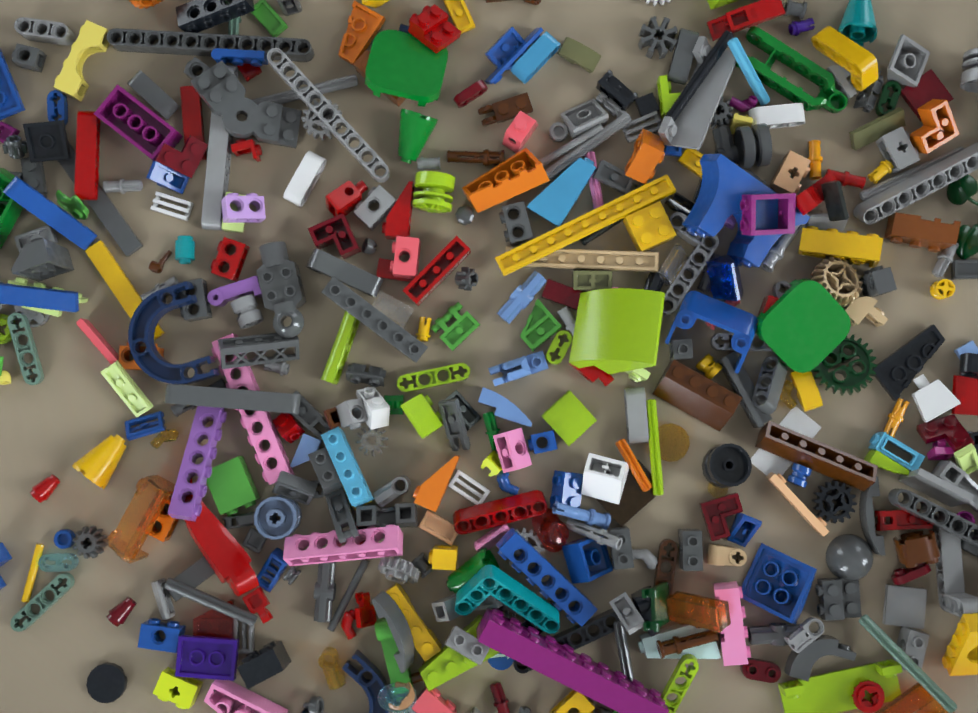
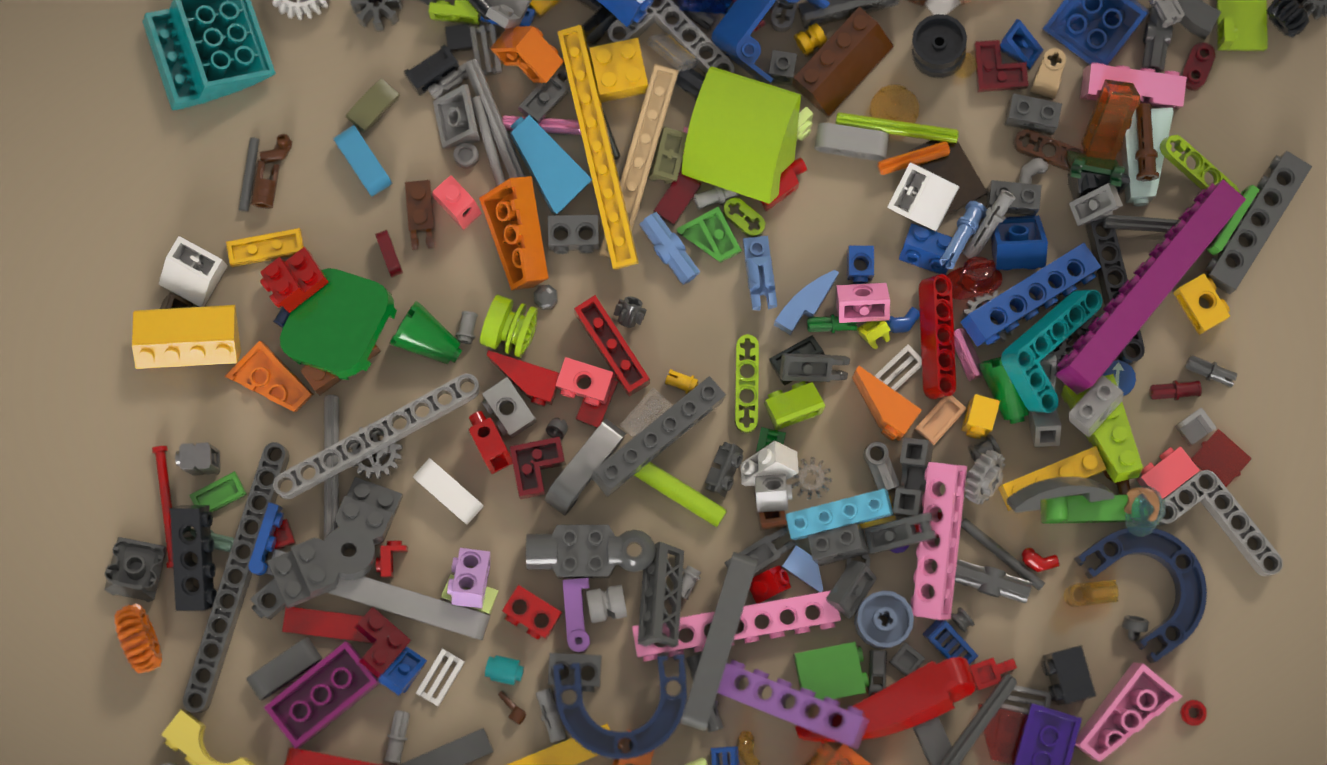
camera: 85 degrees left, 5 degrees down
(366, 612) = (1028, 534): red plate -> none
(452, 156) = (465, 294): reddish brown pin -> none
(459, 330) = (694, 337): bright green plate -> none
(507, 50) = (345, 192): blue bracket -> none
(568, 418) = (836, 225): lime slope -> none

